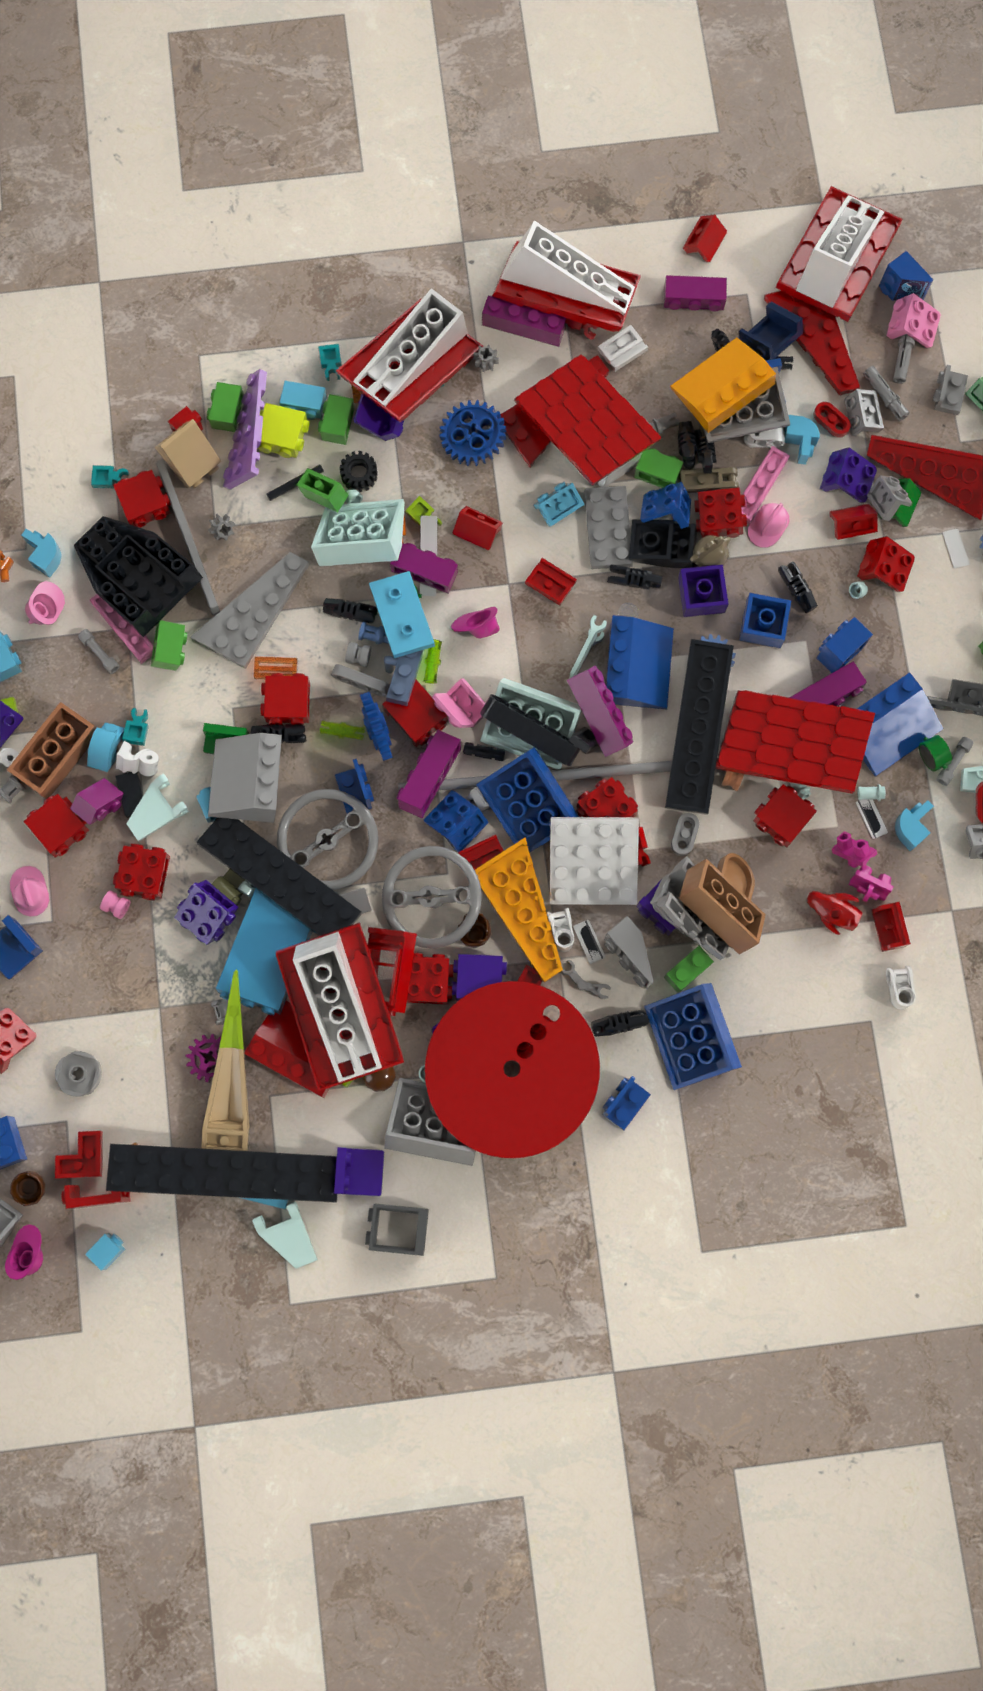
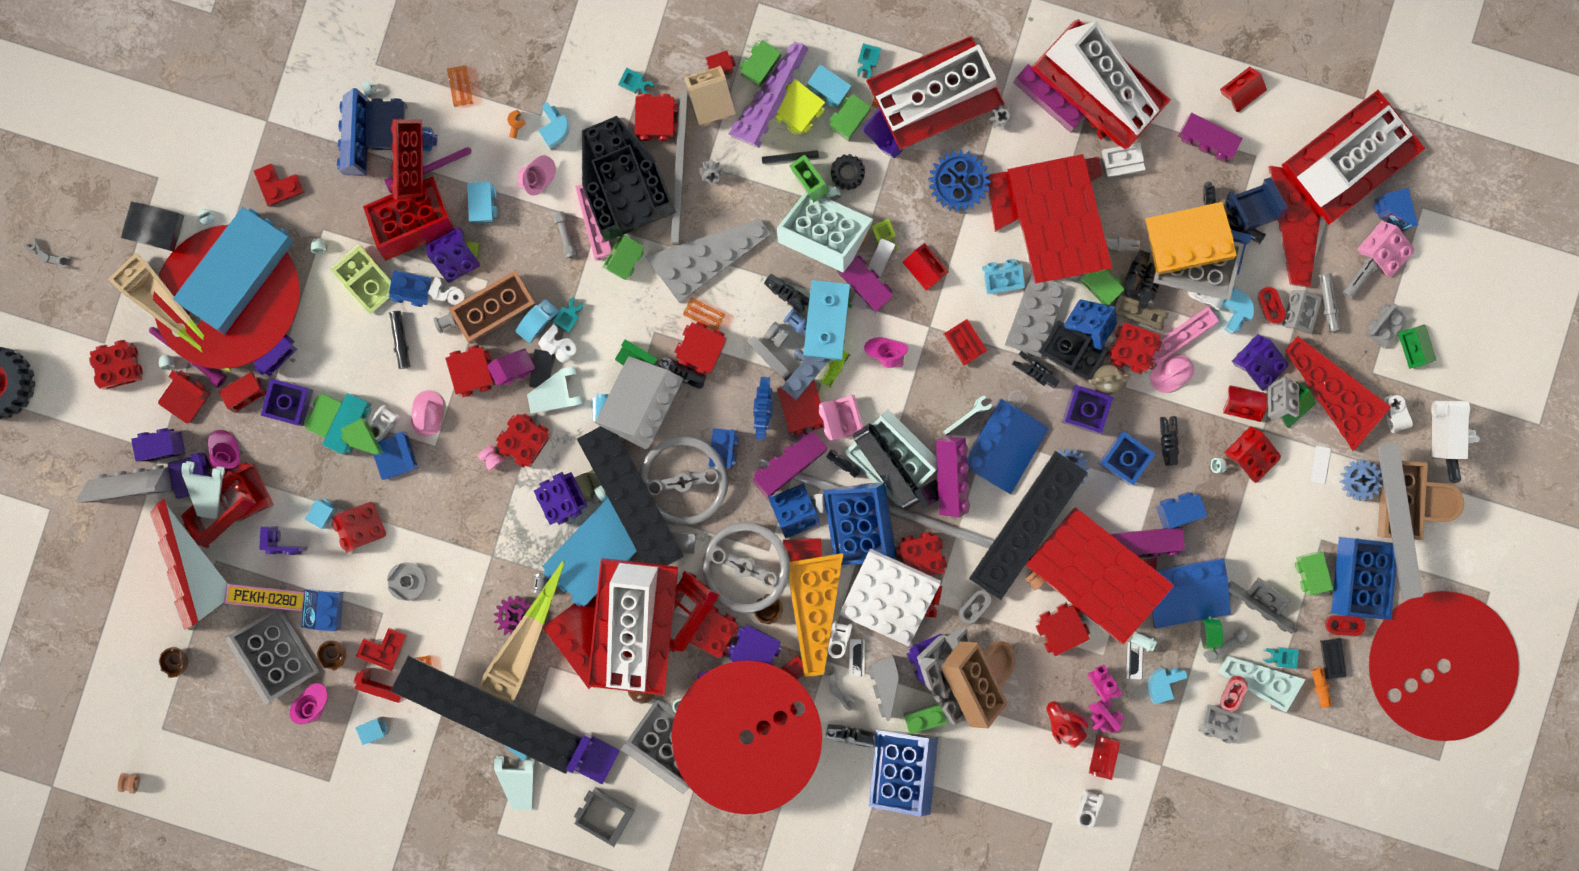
camera: 30 degrees right, 10 degrees up
(342, 730) = (735, 393): clear neon green pin -> none
(626, 1103) = (825, 800): blue bracket -> none

